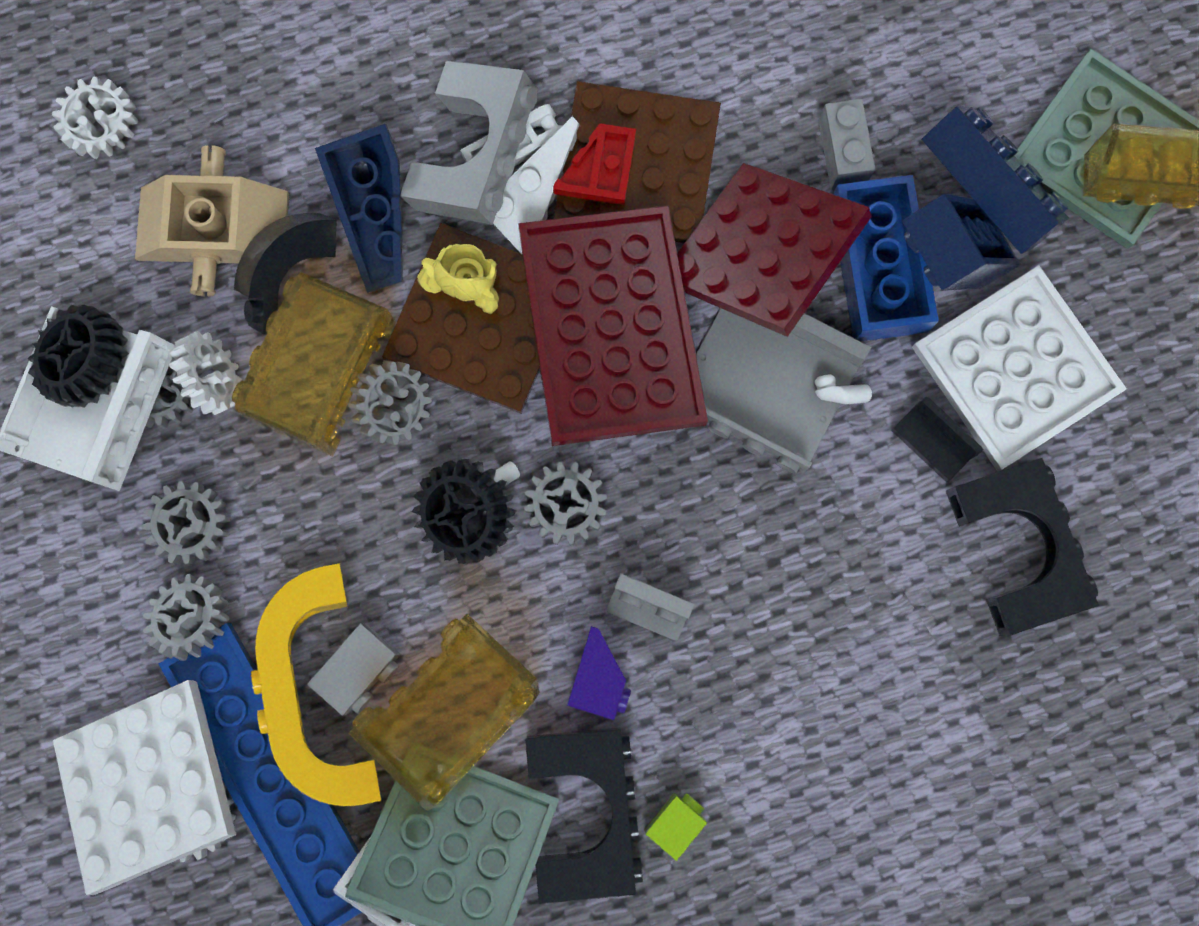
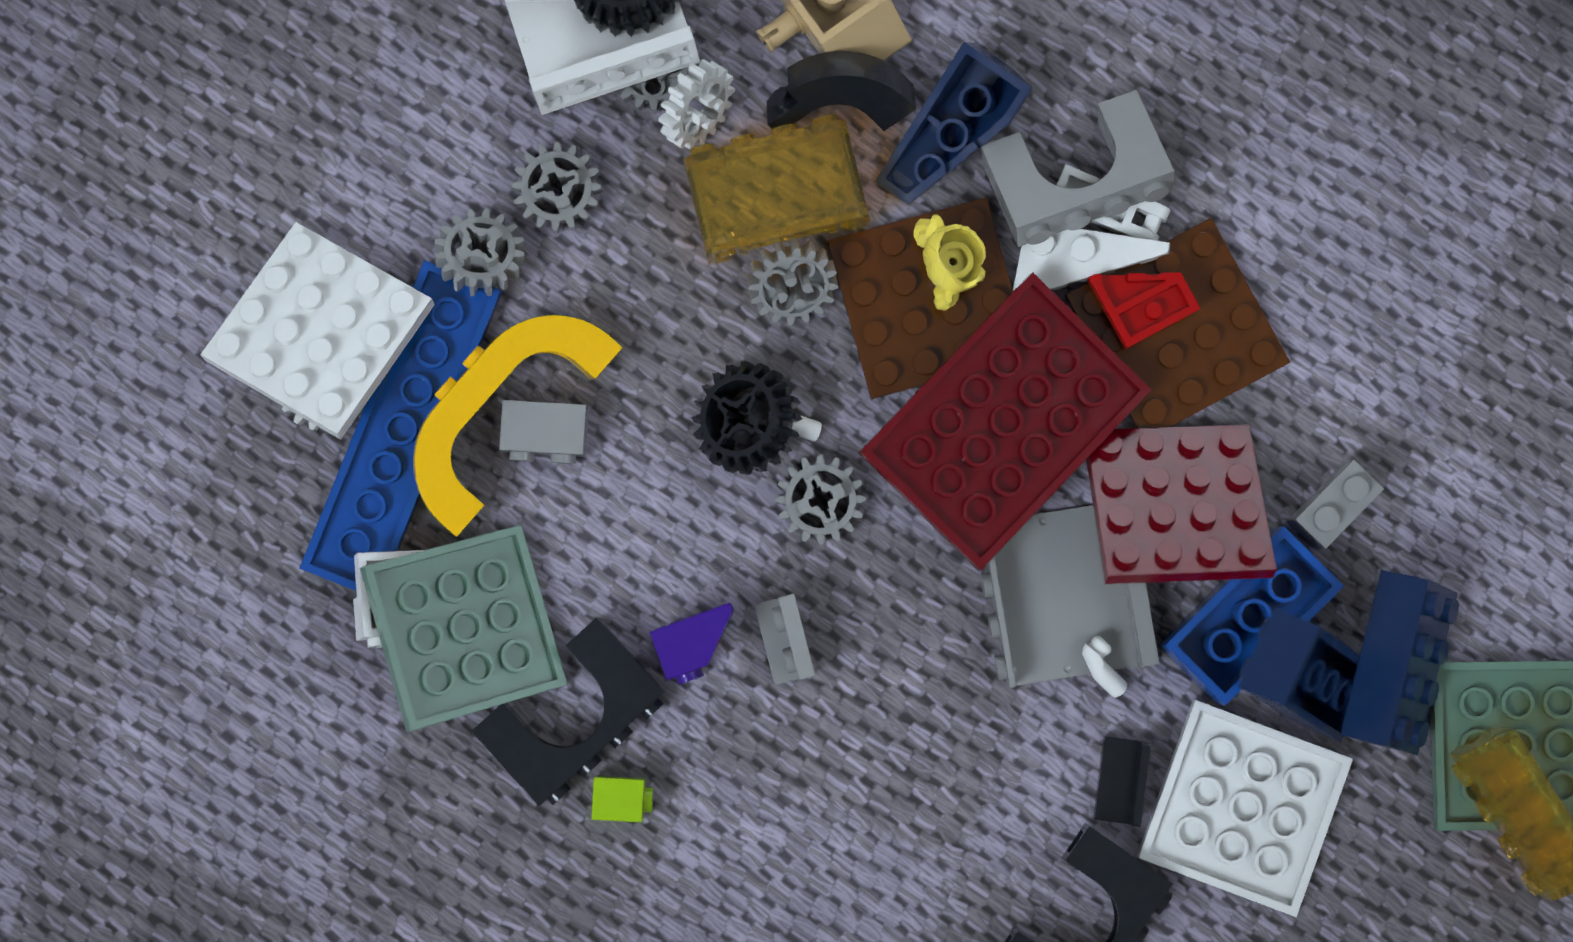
camera: 50 degrees right, 5 degrees up
(448, 713) = (569, 537): clear yellow windscreen -> none

